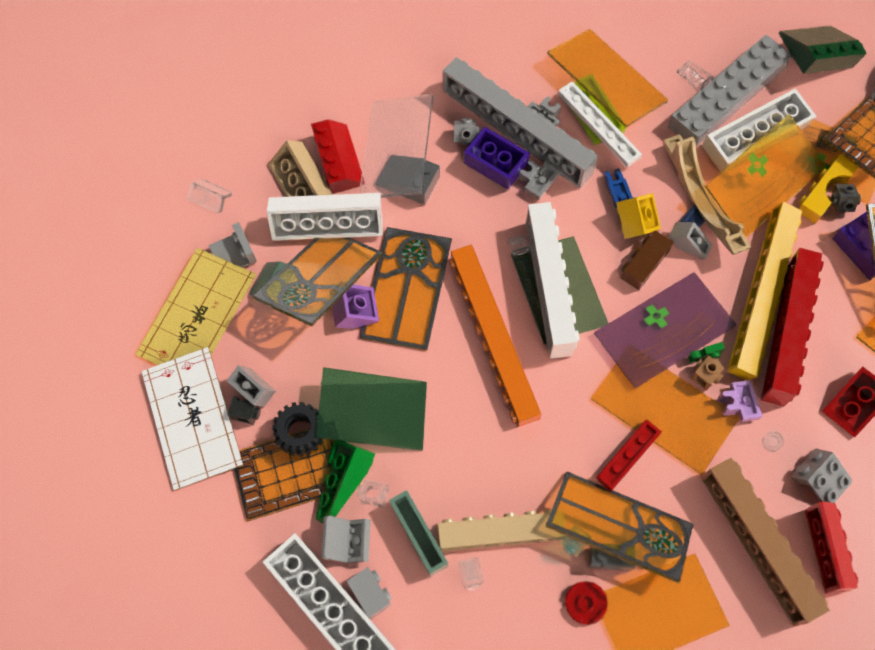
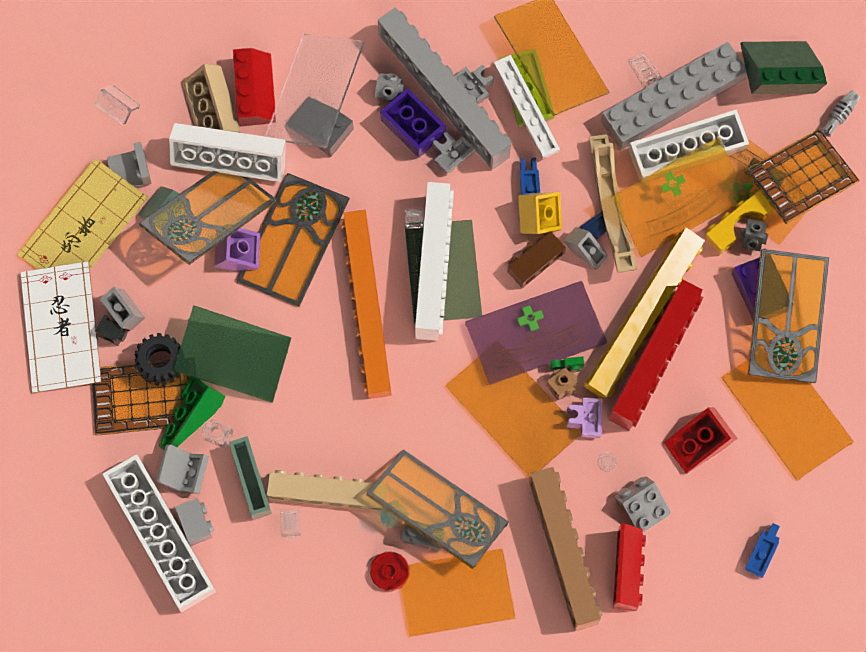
camera: 10 degrees right, 5 degrees up
(628, 455) = (465, 446): red tile -> none

